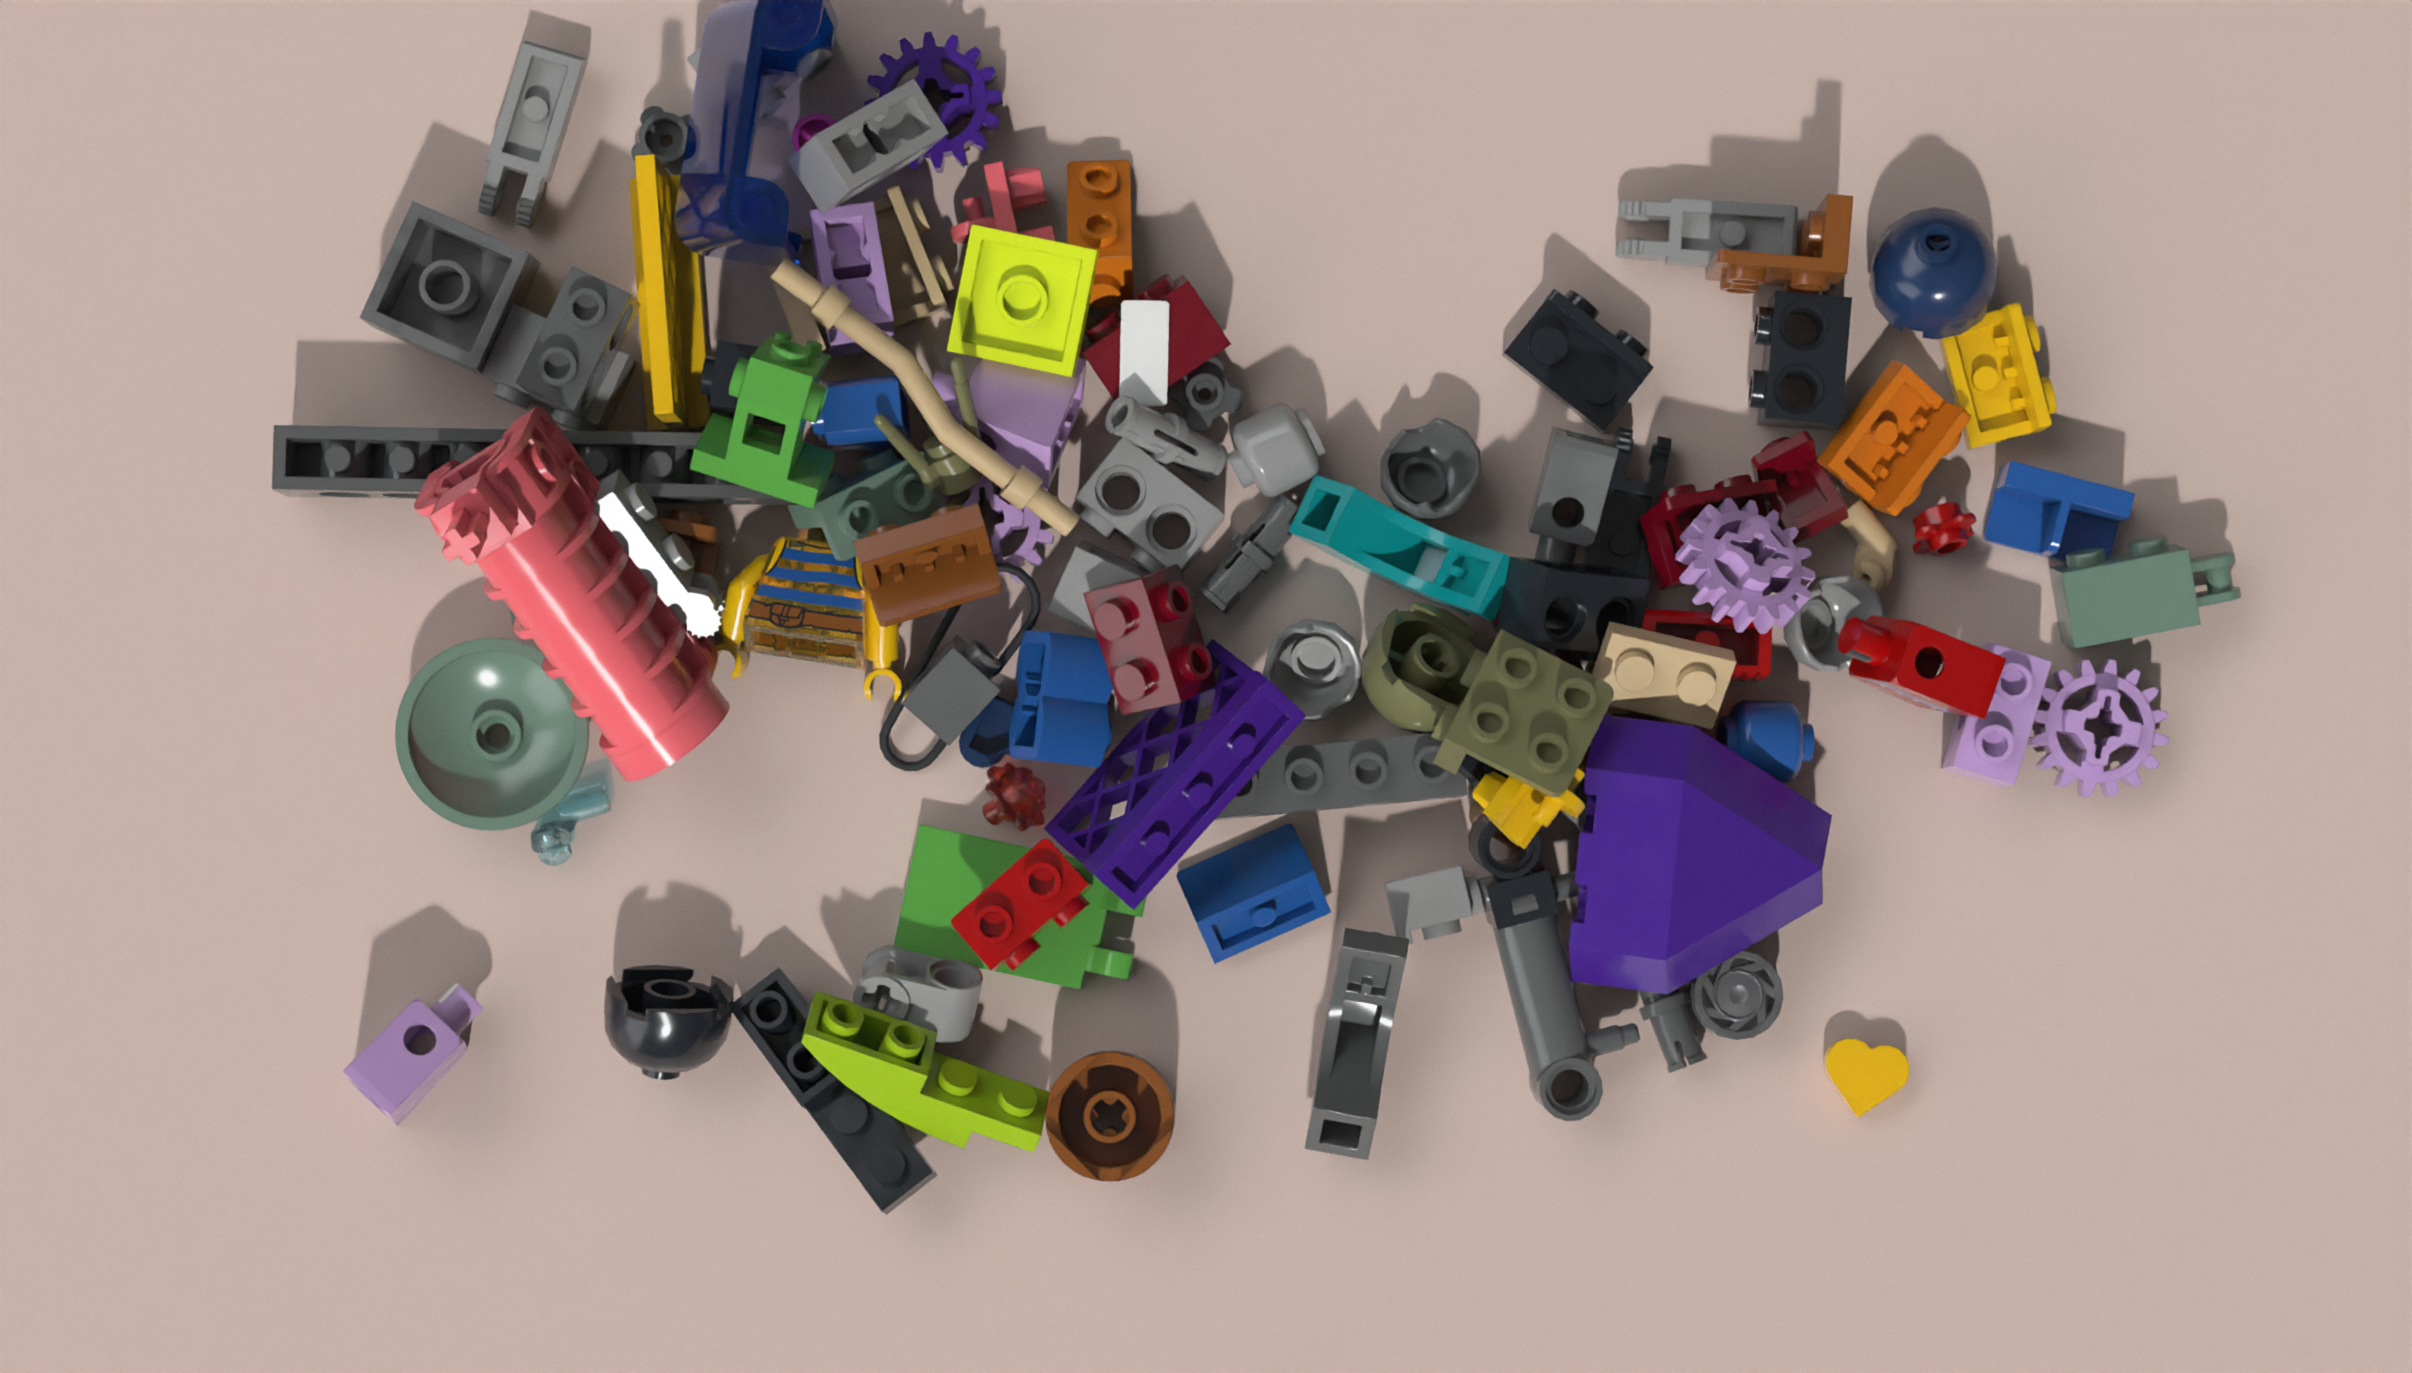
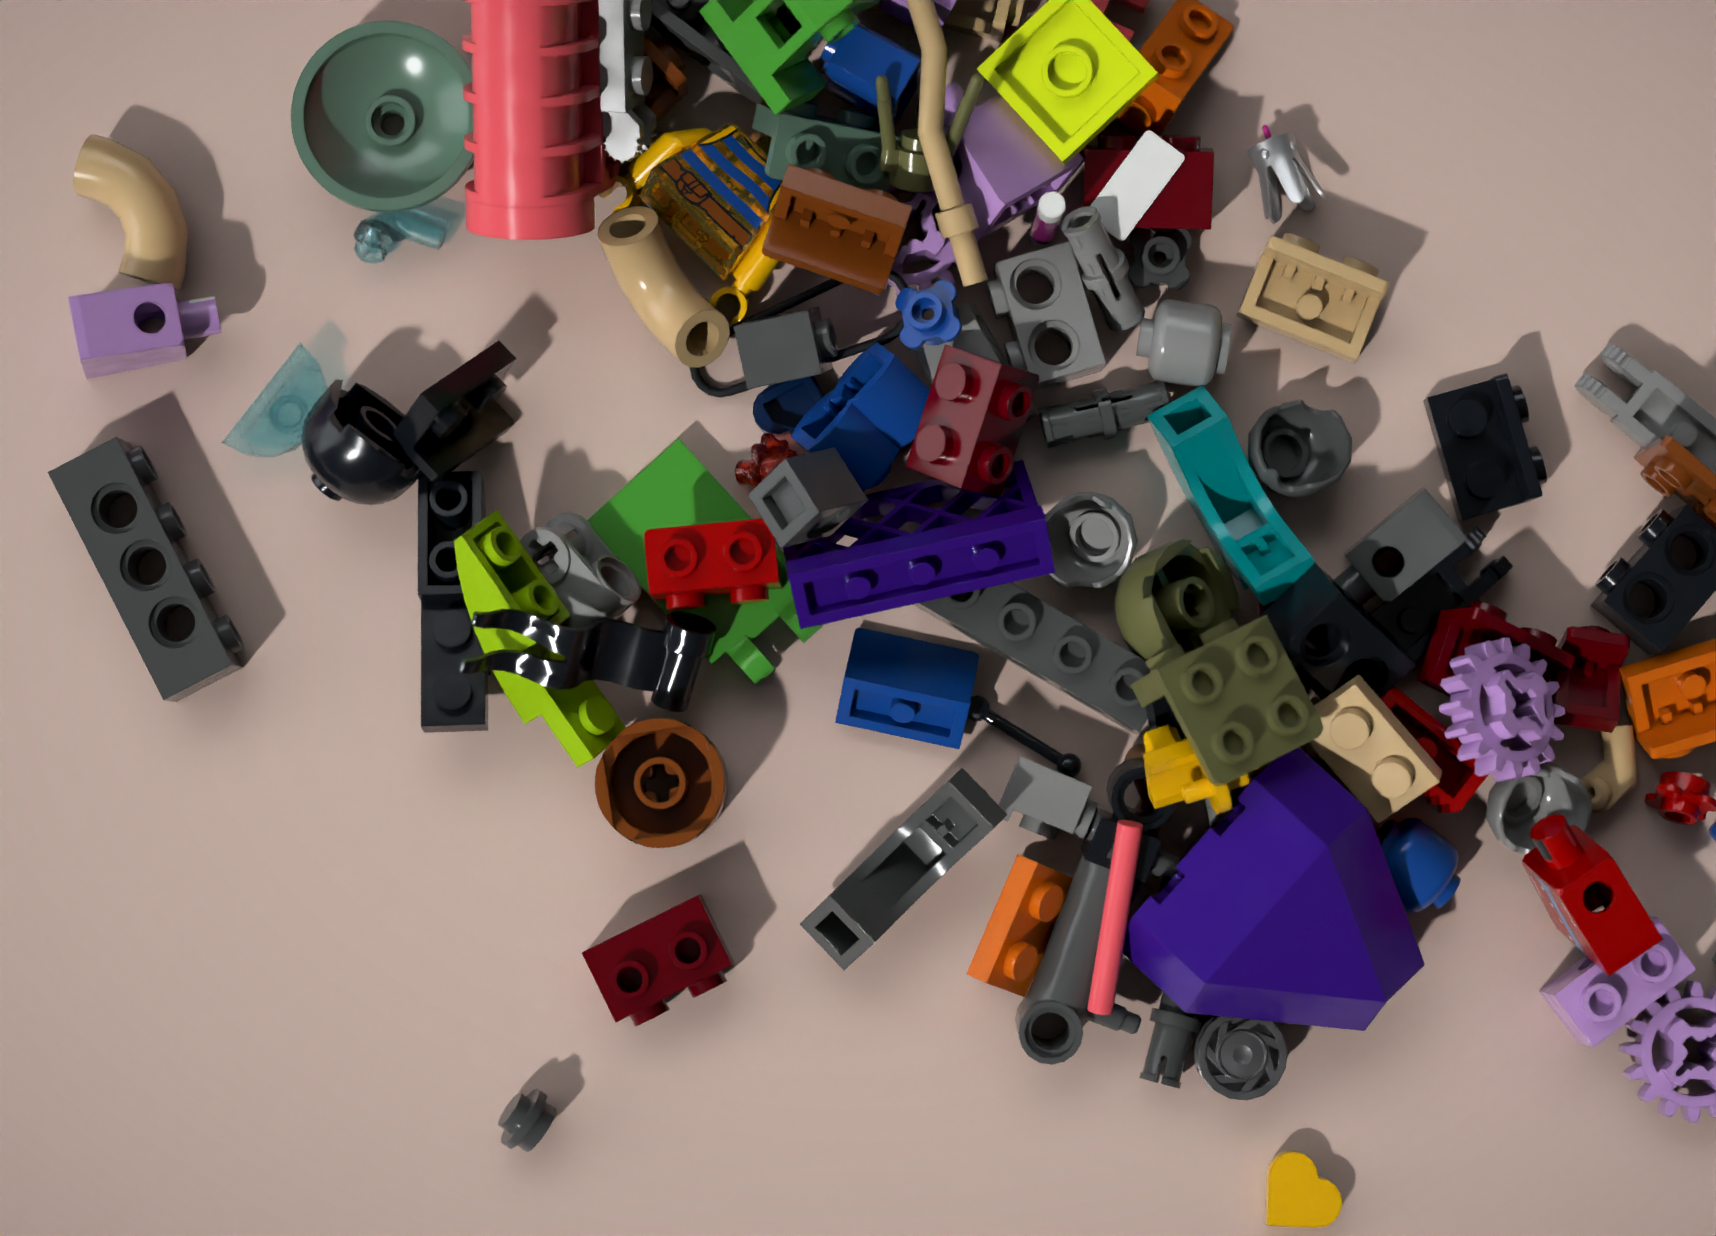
camera: 35 degrees right, 0 degrees up
(342, 949) = (144, 204): none -> tan cylinder
(468, 1218) = (88, 490): none -> dark grey brick
(578, 1035) = (278, 413): none -> clear light blue plate
(727, 937) = (457, 414): none -> black bracket
(817, 713) = (660, 288): none -> tan cylinder
(987, 1041) = (604, 651): none -> black flag
(1062, 799) = (807, 497): none -> dark grey brick
(1071, 578) = (941, 328): none -> blue plate
(1093, 434) = (1047, 220): none -> bar
(1211, 1260) = (659, 960): none -> dark red brick
(1246, 244) = (1281, 157): none -> flat silver piece
(1352, 337) = (1313, 296): none -> tan bracket
(1428, 861) = (1067, 763): none -> black hinge
(1484, 1021) = (1020, 926): none -> orange bracket
(1555, 959) = (1115, 917): none -> coral bar

